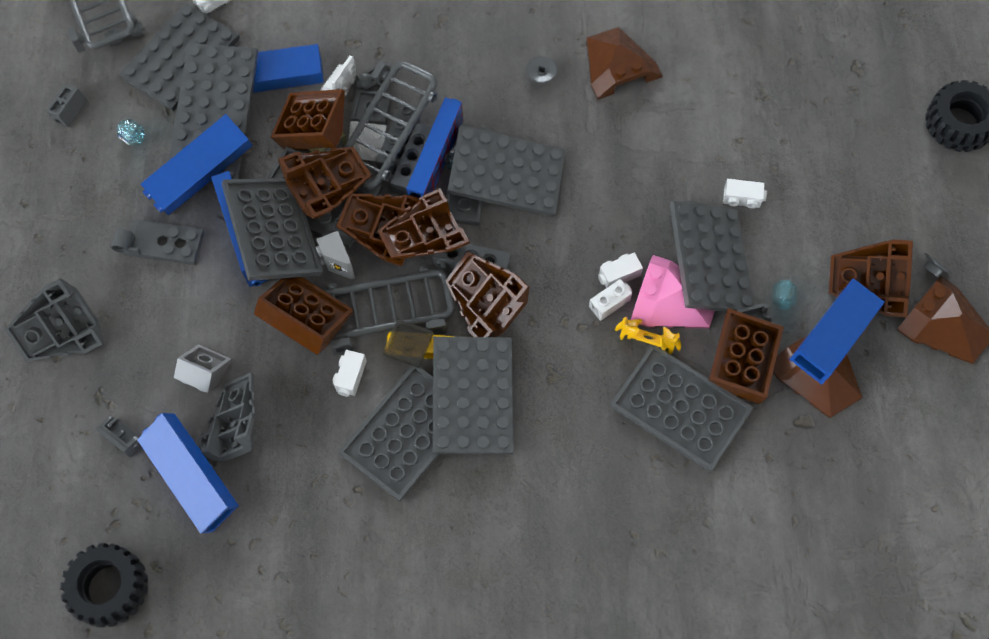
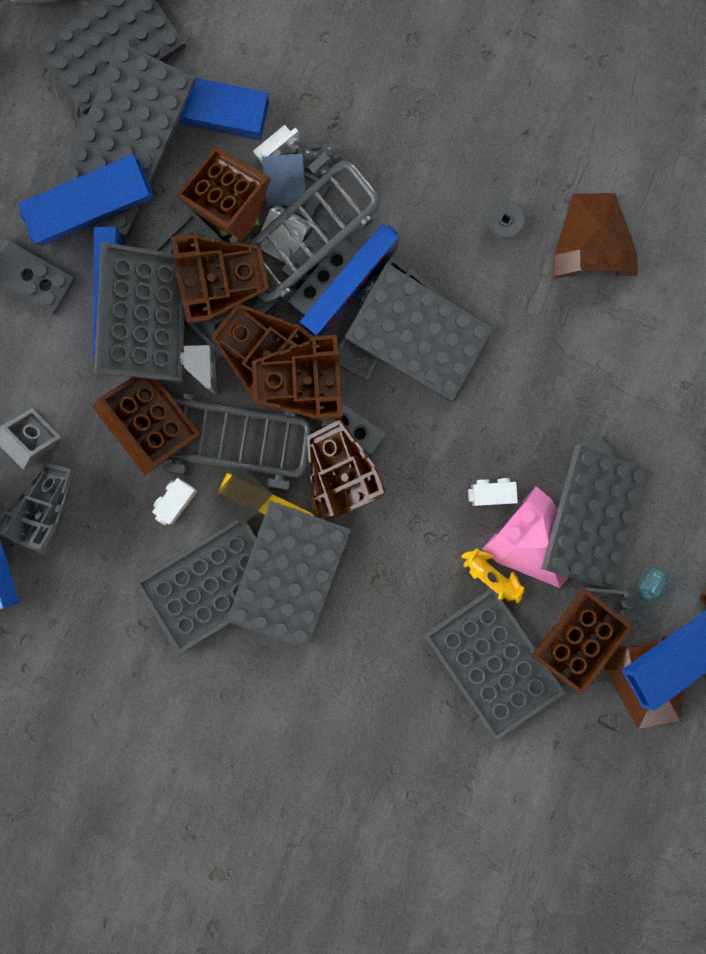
camera: 20 degrees right, 20 degrees up
(130, 132) = (28, 127): clear light blue head -> none
(356, 97) = (286, 178): none -> sand blue piece
(610, 299) = (471, 521): white brick -> none
(744, 193) = (665, 455): white brick -> none

